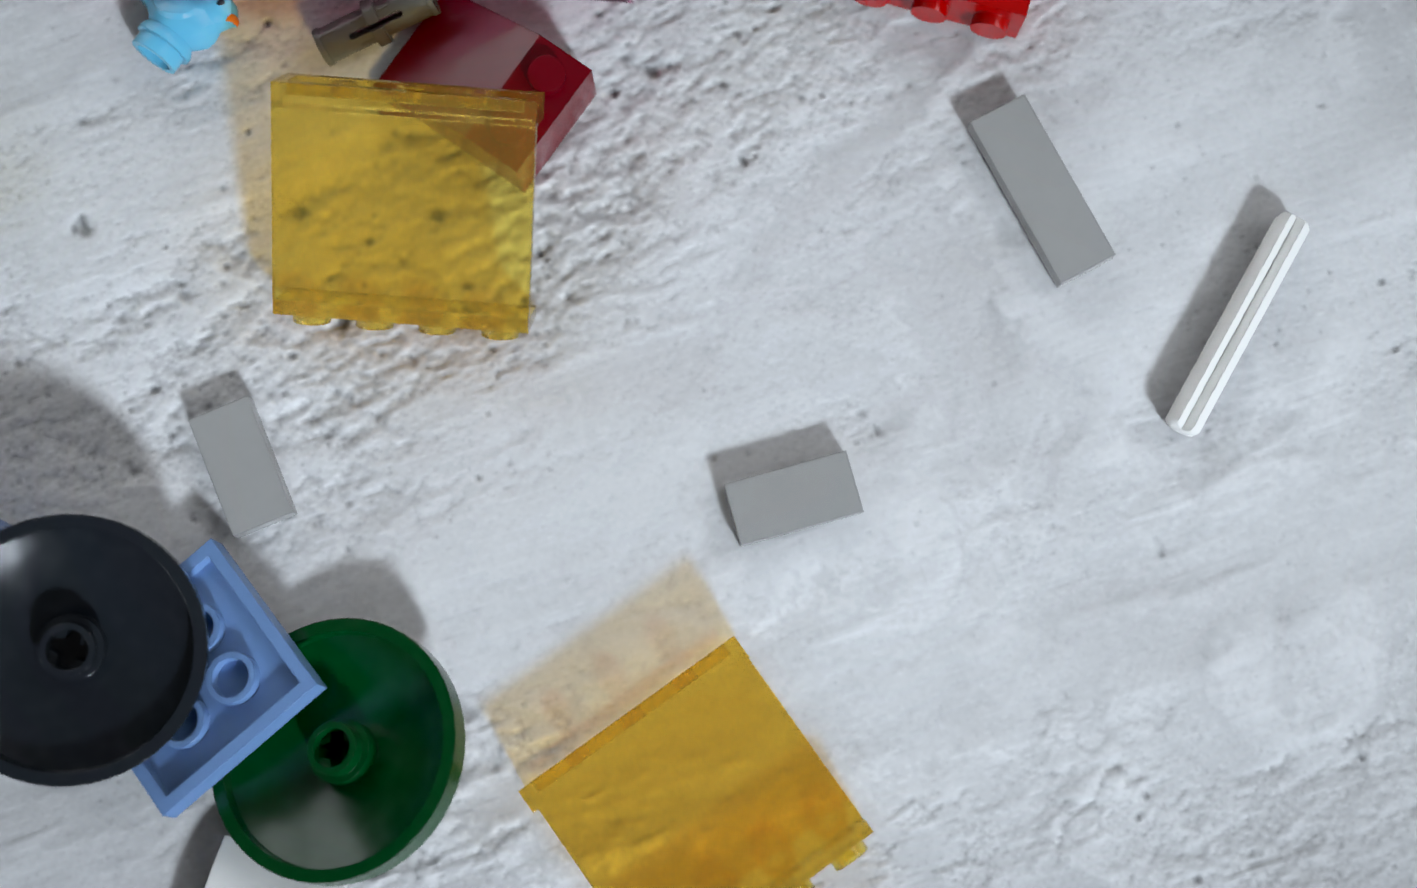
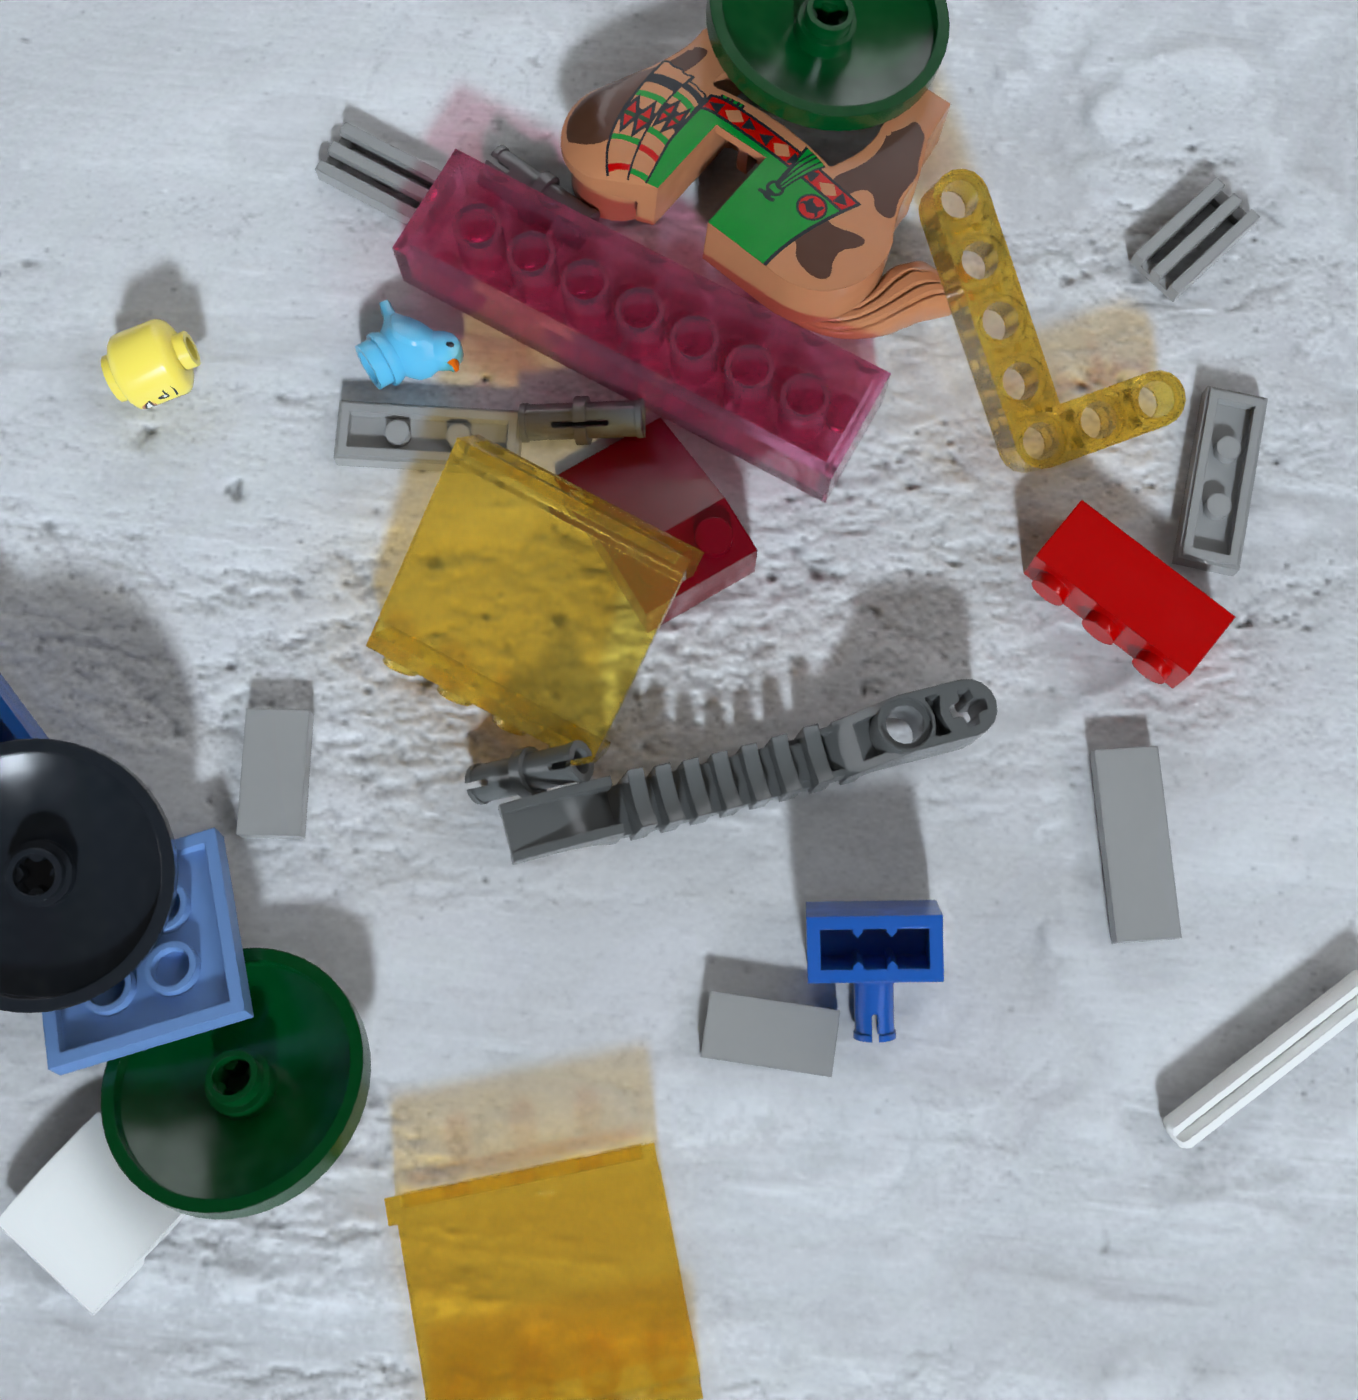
camera: 25 degrees right, 5 degrees down
(225, 102) = (415, 434): none -> light grey tile
(475, 362) = (529, 772): none -> dark grey pin
(748, 221) = (842, 752): none -> dark grey piece
(851, 383) = (874, 949): none -> blue brick

